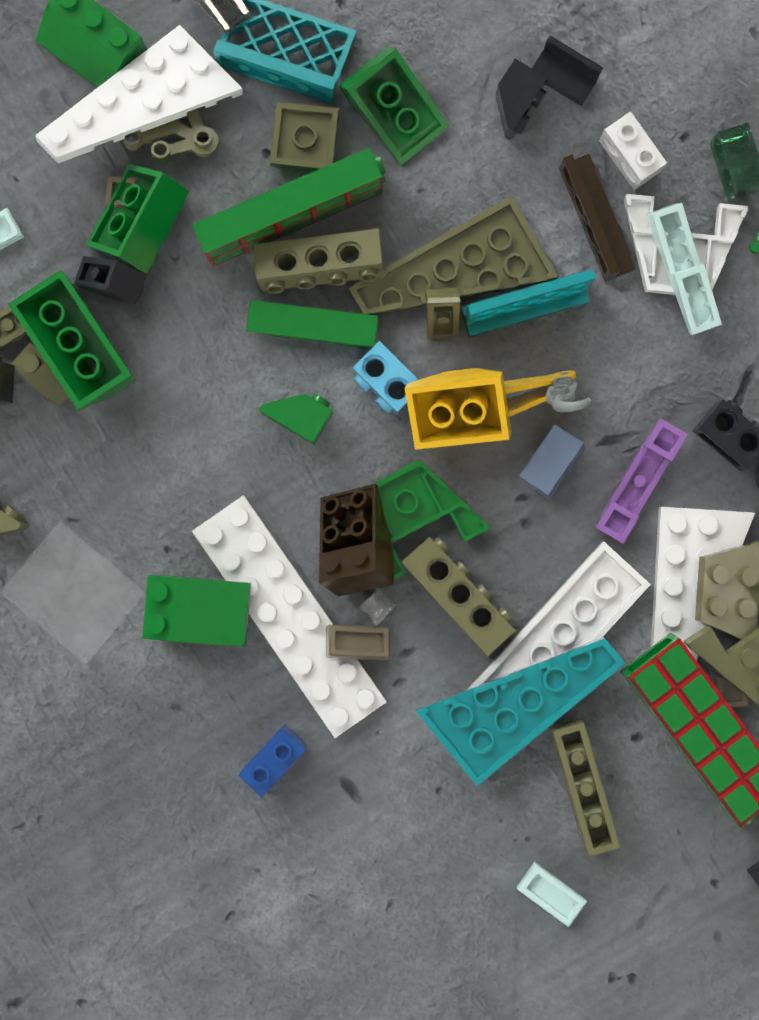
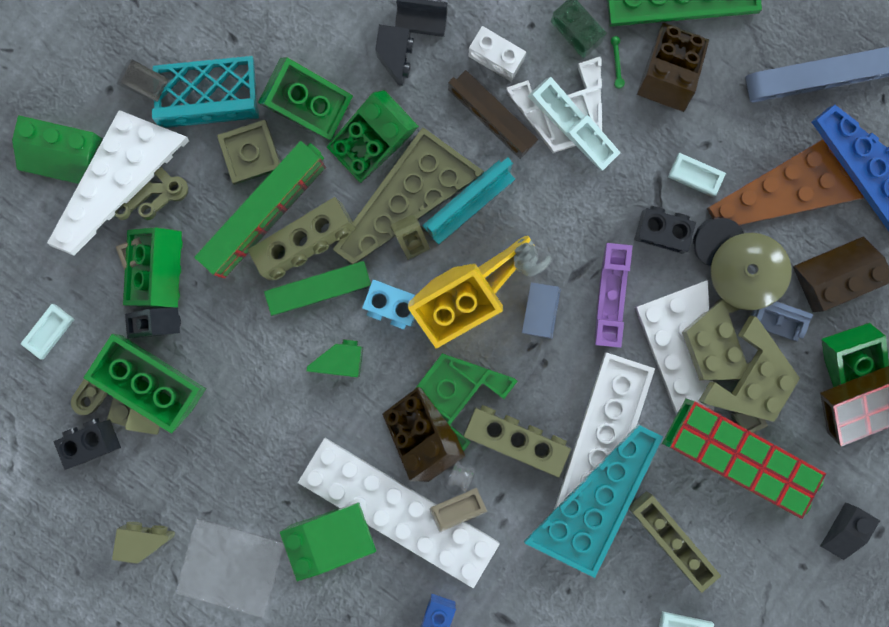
camera: 25 degrees left, 0 degrees up
(450, 180) = (372, 135): none -> green slope

